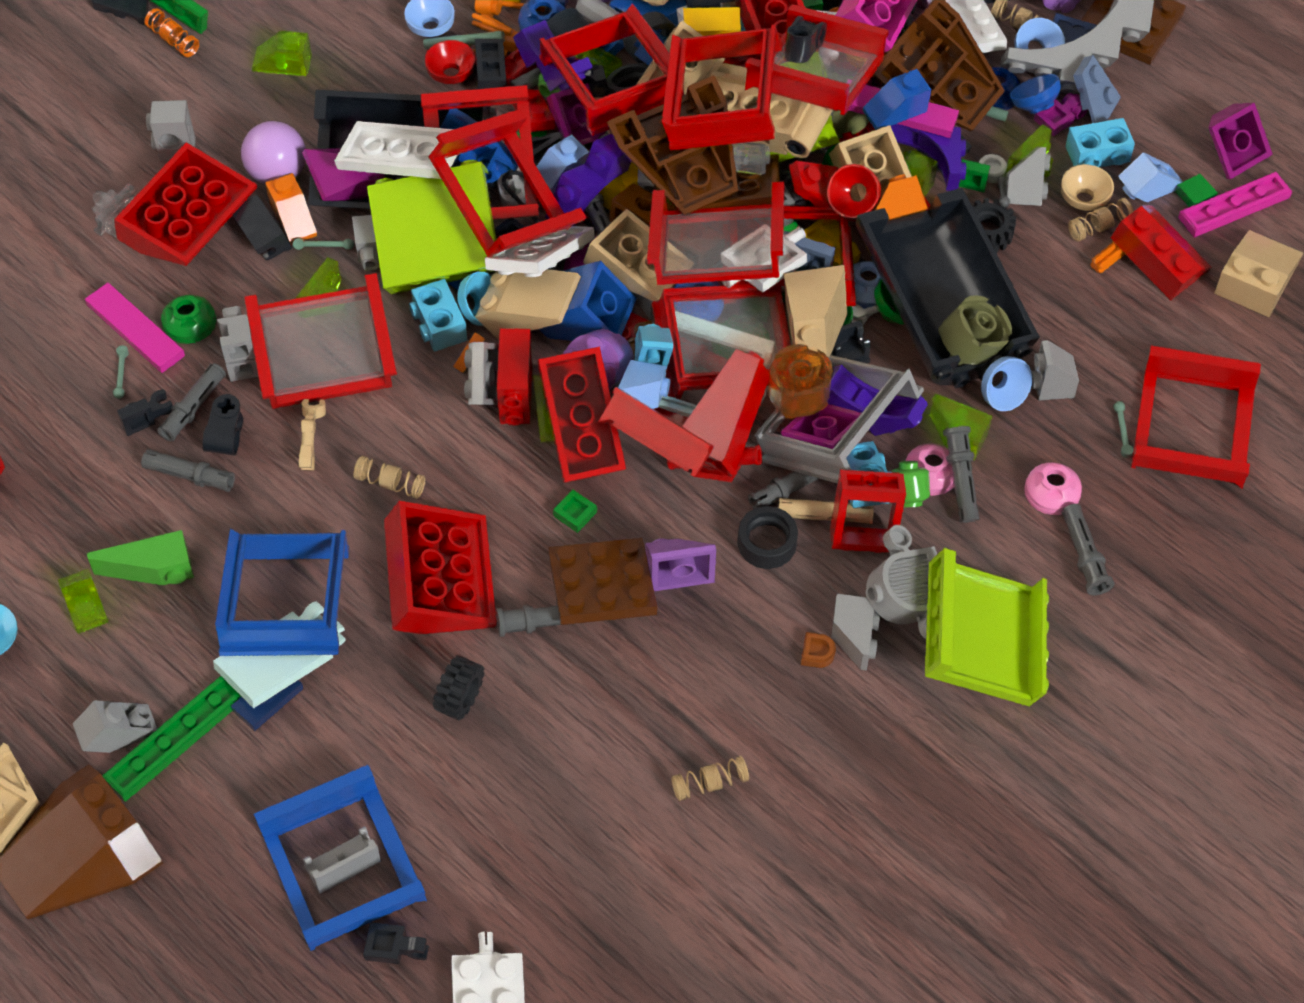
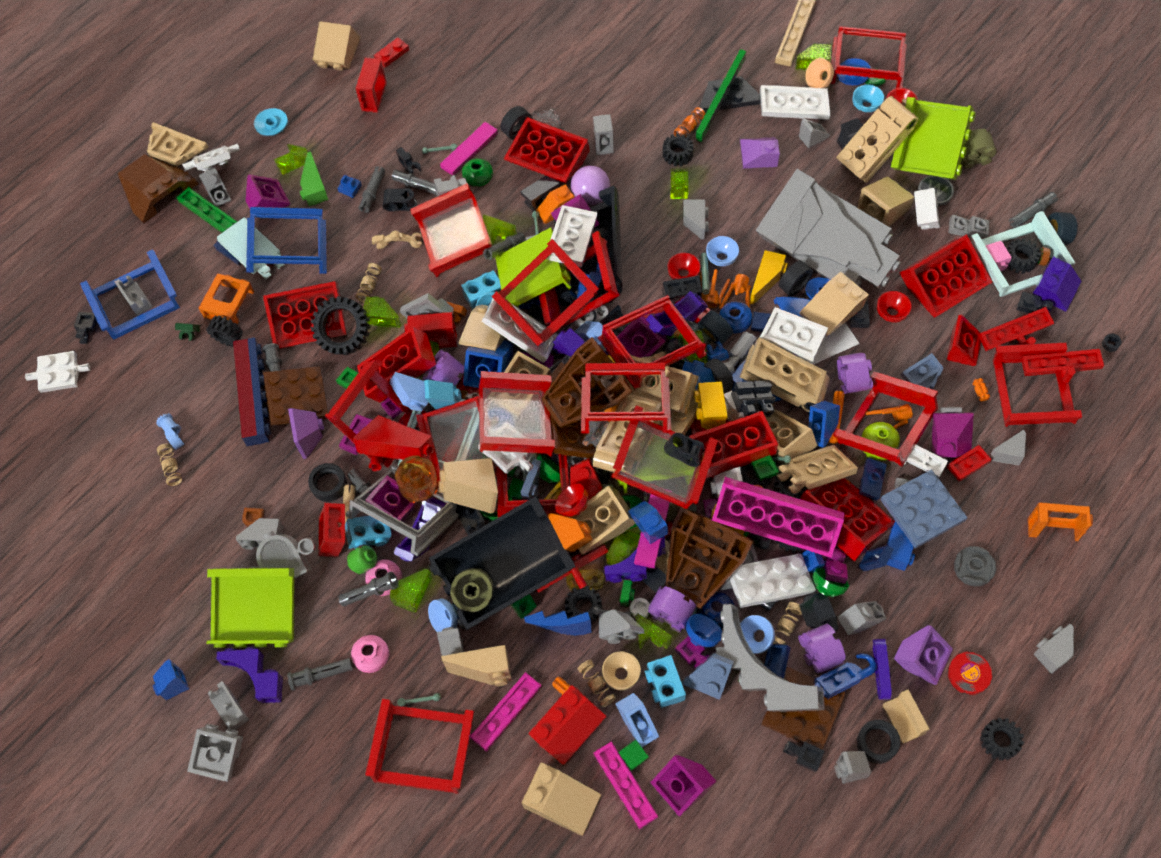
camera: 90 degrees right, 5 degrees up
(49, 726) = (212, 157): none -> white plate
(110, 245) = (510, 119): none -> black tyre
(163, 637) = (265, 193): none -> magenta slope
(169, 508) = (349, 186): none -> blue tile
(218, 40) = (677, 157): none -> black tyre
(357, 269) = (508, 243): none -> dark grey pin
(358, 41) = (694, 217): none -> light grey slope
(406, 705) = (212, 307): none -> orange window
(433, 758) = (187, 328): none -> dark green tile
(455, 459) = (381, 313): none -> clear neon green slope
(458, 526) = (321, 317): none -> black tyre
(581, 651) = (251, 392): none -> brick
(635, 452) = (391, 409): none -> magenta tile
(644, 777) = (171, 430): none -> light blue connector
(683, 497) = (357, 425): none -> magenta plate
(1002, 122) = (671, 608): none -> medium lavender brick
(1021, 250) = (559, 623): none -> blue slope
(1082, 325) = (483, 665): none -> tan slope
(1104, 618) = (267, 684): none -> dark purple arch
(1105, 746) = (169, 680): none -> blue slope
(1132, 320) = (505, 712): none -> dark pink tile
(1141, 671) = (228, 706): none -> light grey hinge
(1192, 19) = (807, 755): none -> black plate
(1214, 683) = (215, 752): none -> light grey plate

